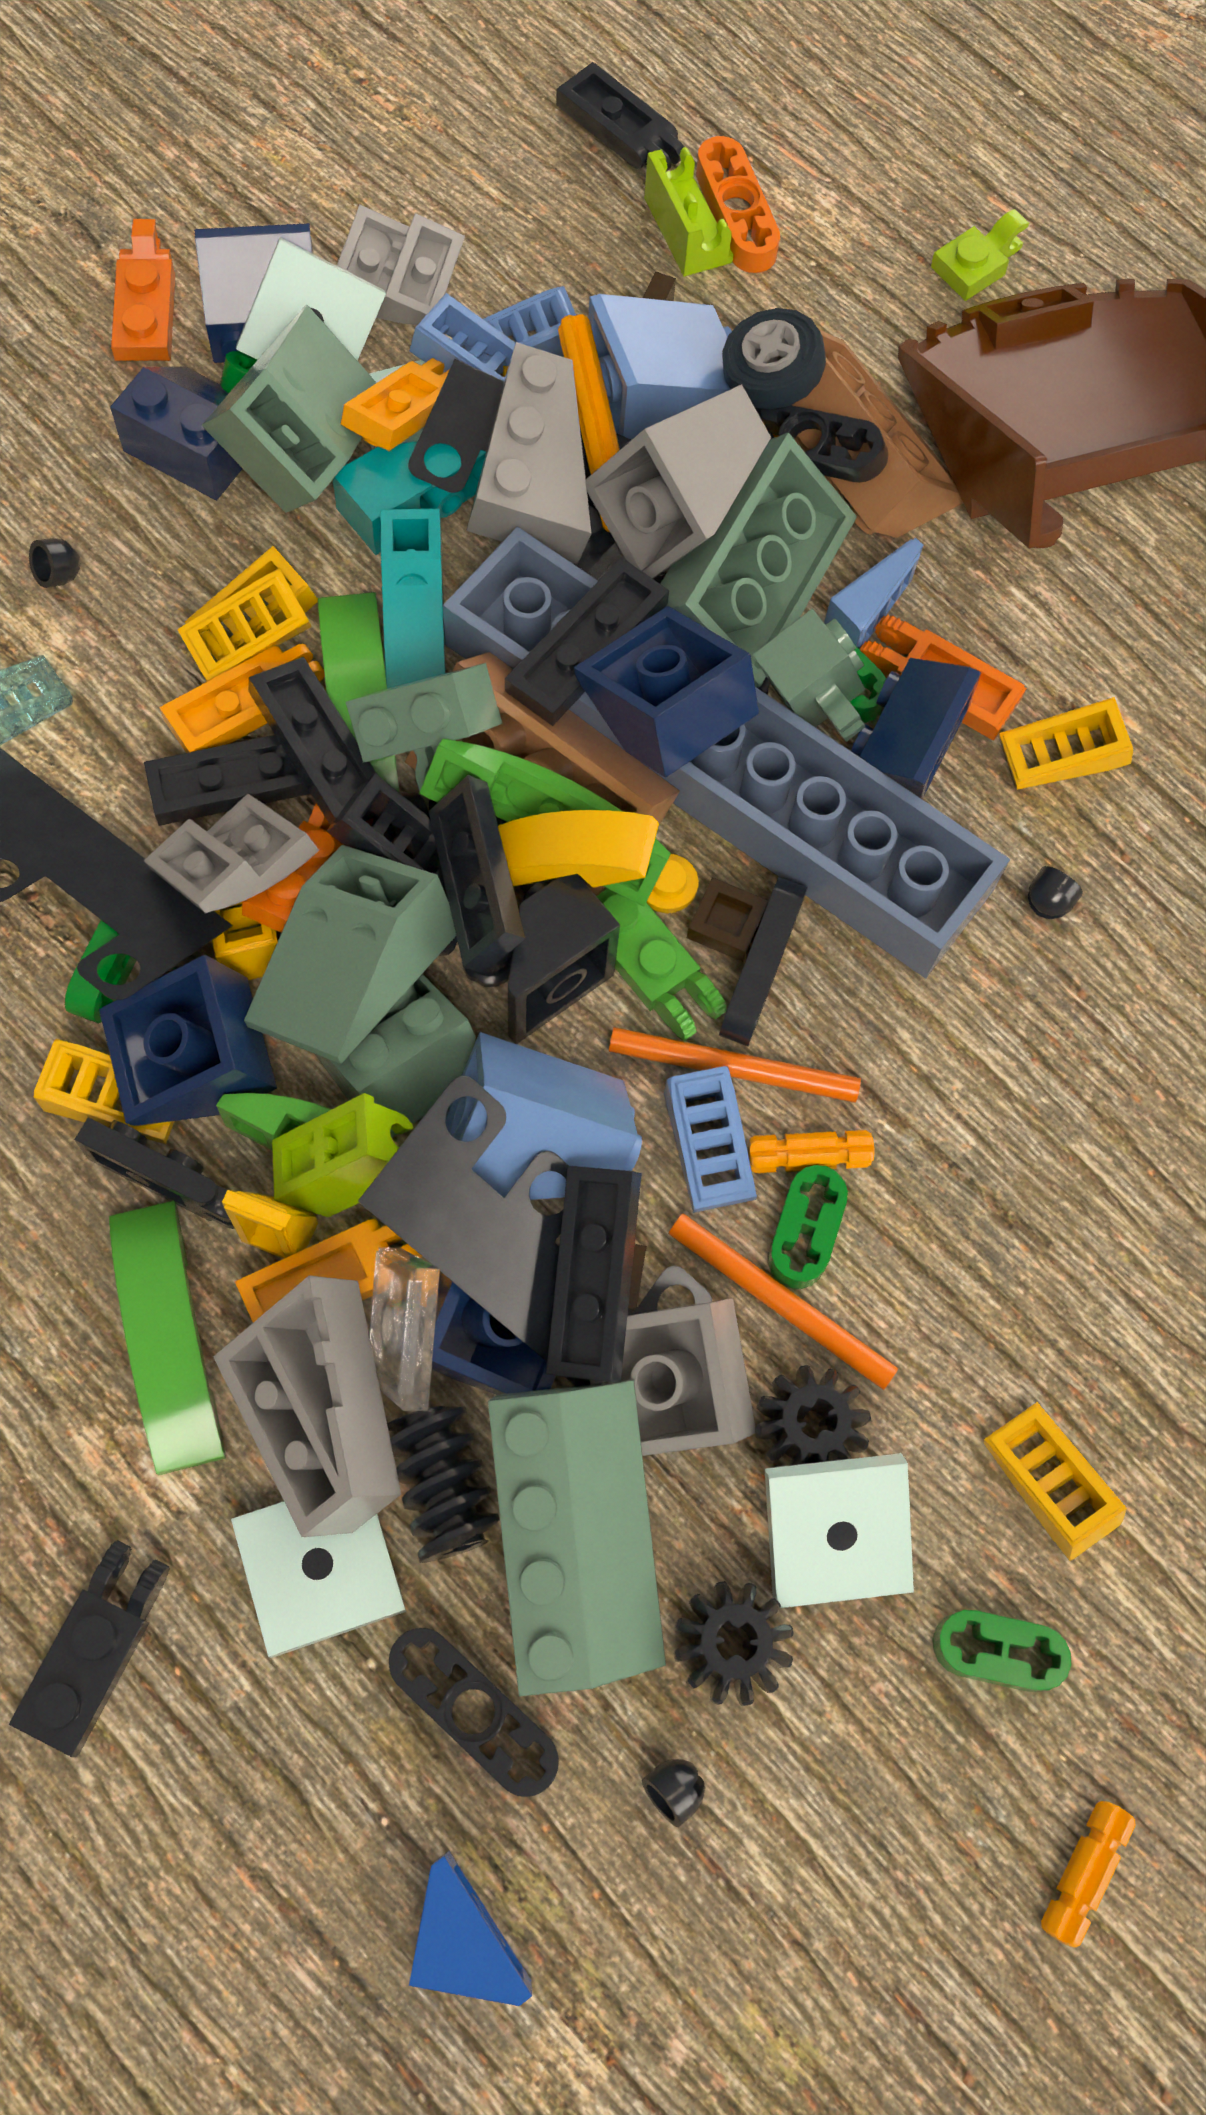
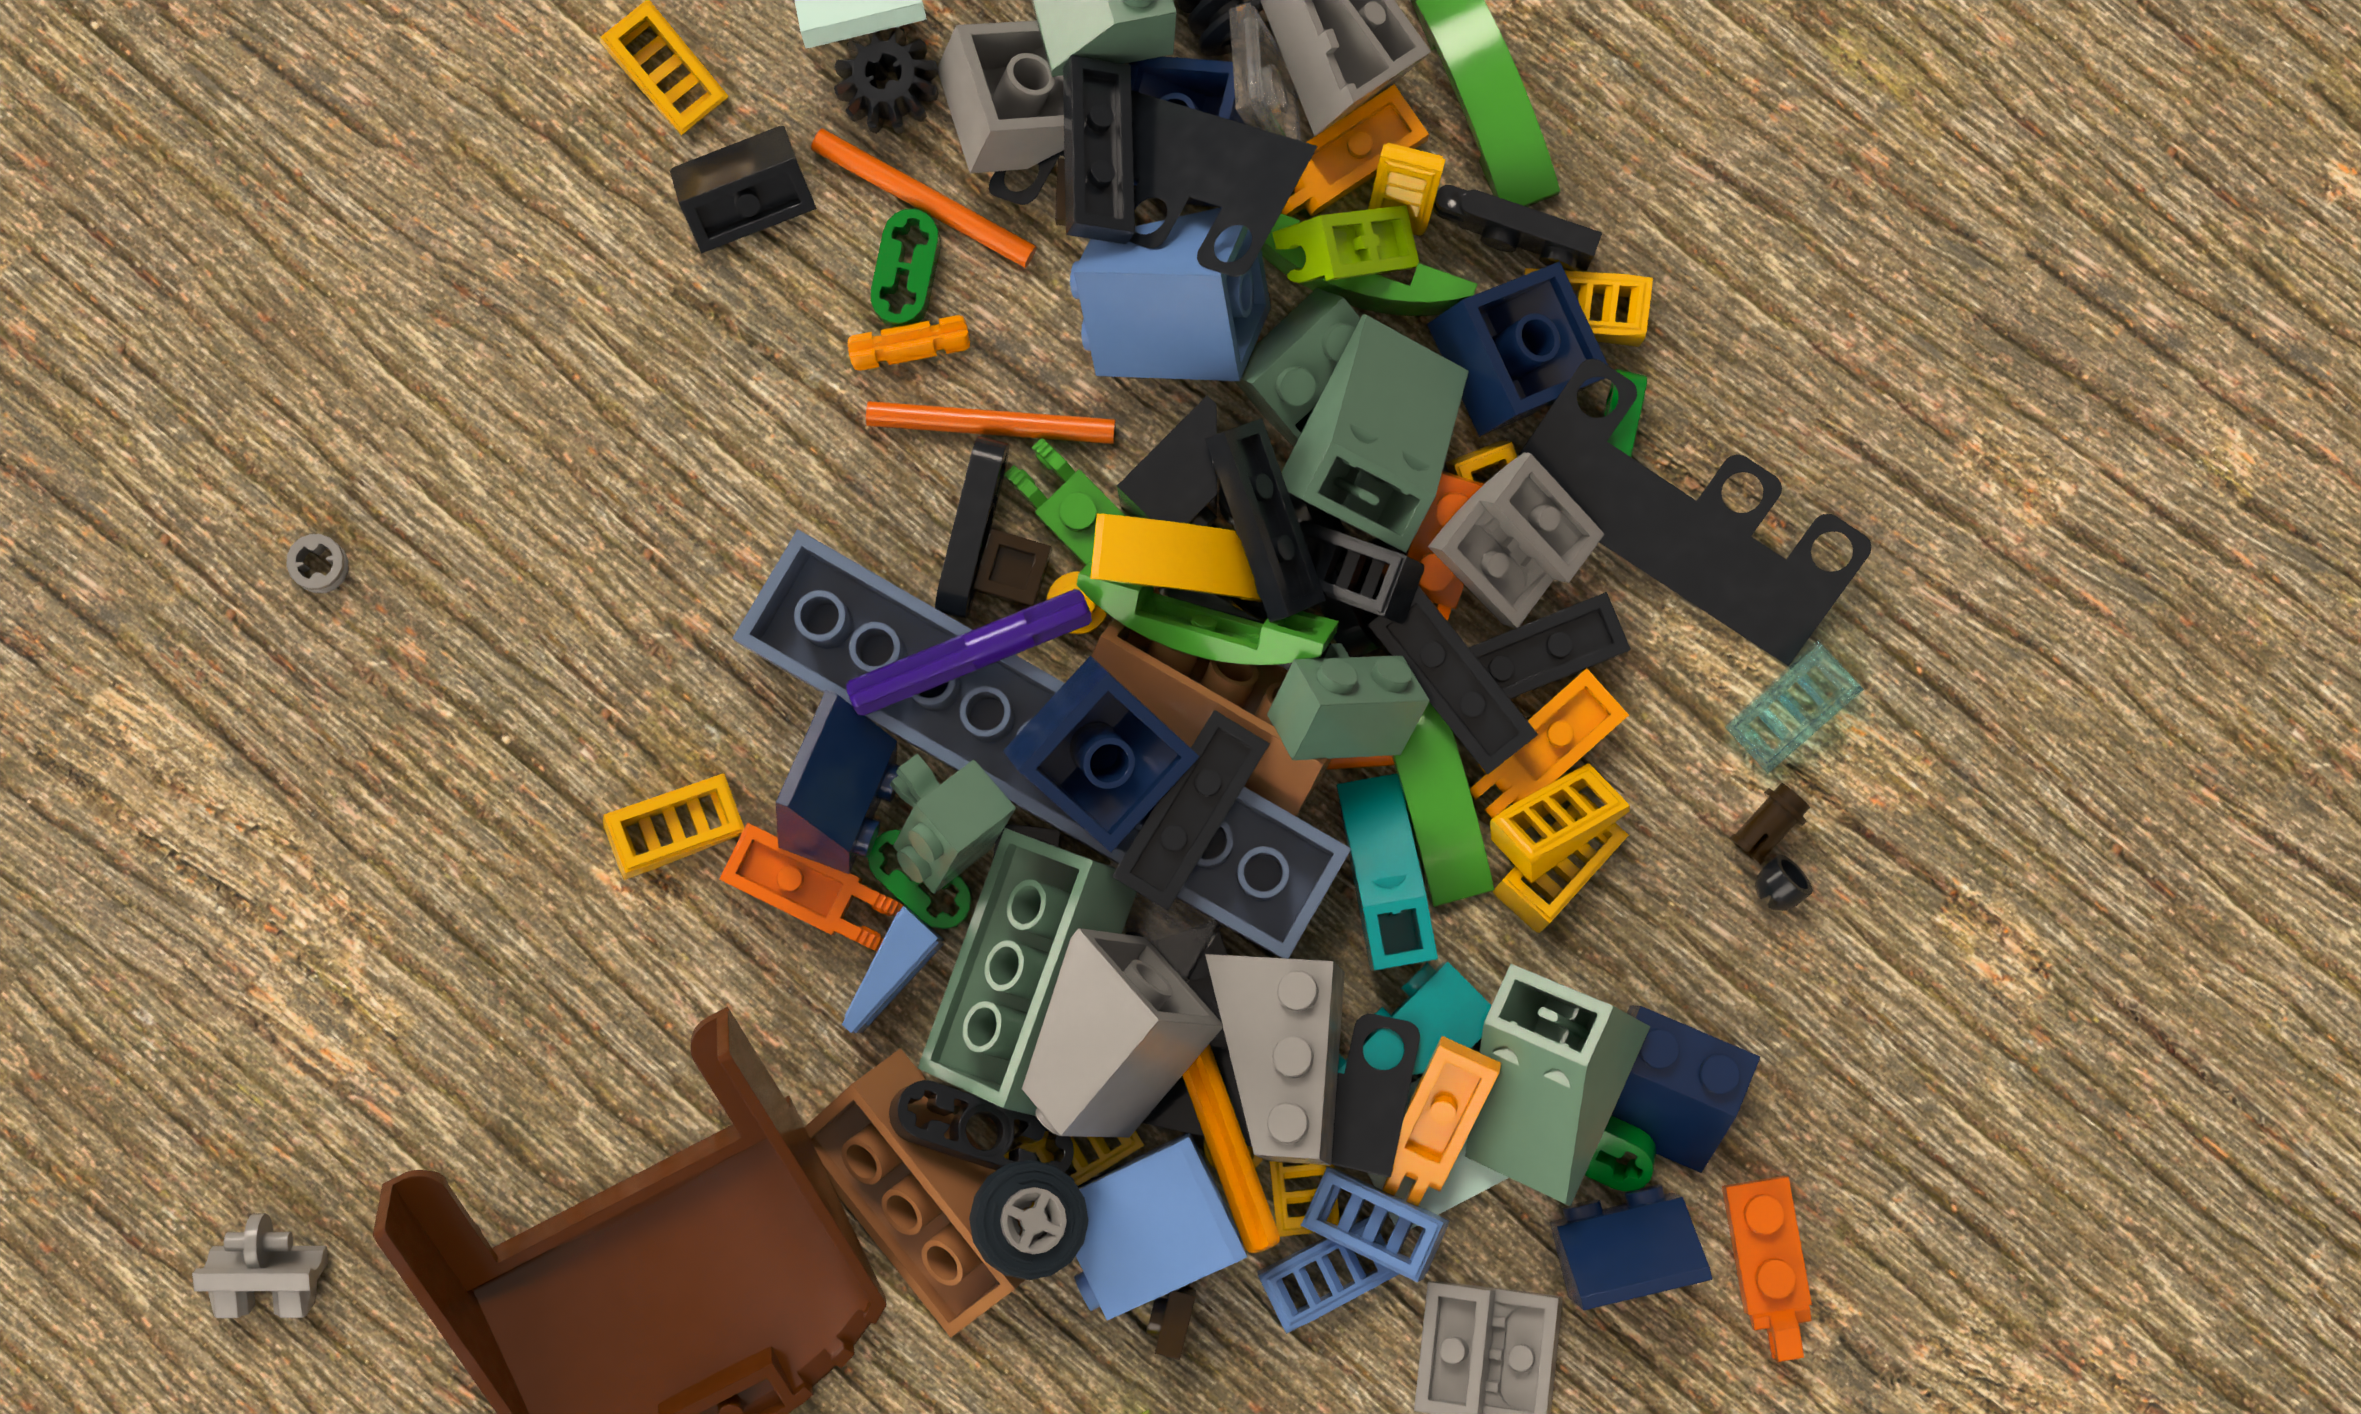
camera: 175 degrees left, 15 degrees up
(51, 610) = (1770, 823): none -> dark brown pin
(302, 279) = (1578, 1239): light aqua tile -> none
(698, 1086) = (1021, 385): medium blue slope -> none
(781, 805) = (968, 652): none -> dark purple axle
(977, 1335) = (741, 189): none -> black panel
(1053, 893) = (682, 647): black hinge -> none

